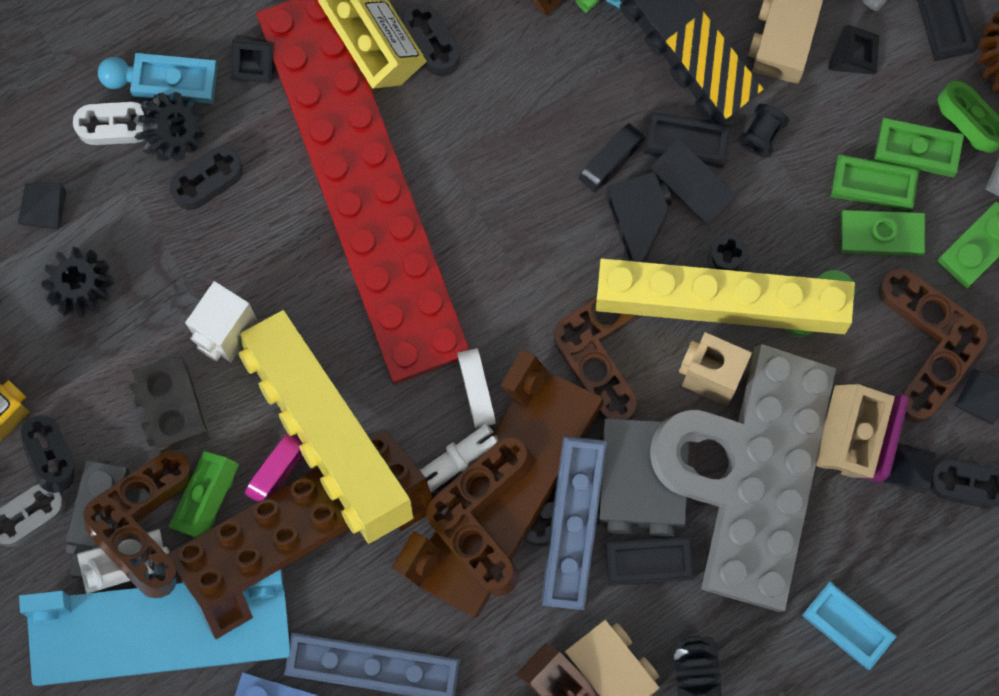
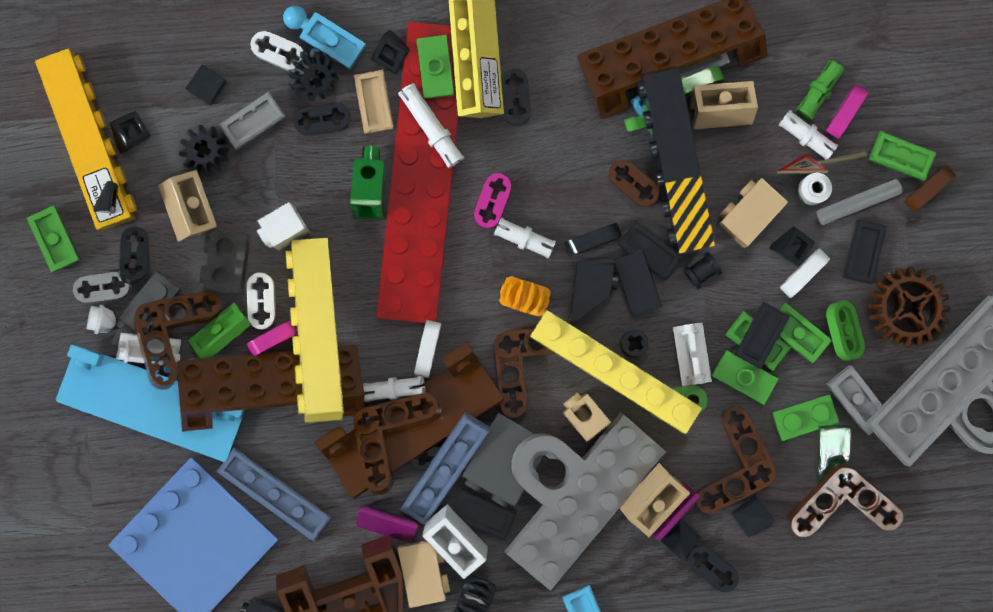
camera: 25 degrees right, 10 degrees up
(43, 555) = (100, 319): none -> white plate
(87, 356) = (187, 205): none -> tan brick
(120, 219) = (252, 121): none -> light grey plate
(246, 427) = (253, 301): none -> white beam
(260, 127) = (373, 102): none -> tan tile
(304, 225) = (368, 194): none -> green torso
(315, 45) = (435, 67): none -> bright green plate
(359, 122) = (431, 126): none -> white pin
(474, 172) = (499, 203): none -> dark pink beam
(527, 197) = (524, 237): none -> white pin
(532, 631) = (387, 523): none -> magenta slope
(564, 262) = (524, 296): none -> light orange gear
(626, 61) = (637, 177): none -> reddish brown beam
(634, 606) = (455, 541): none -> white brick
(804, 236) = (692, 354): none -> white hinge
(877, 168) = (761, 335): none -> black tile
(887, 73) = (805, 273): none -> white beam

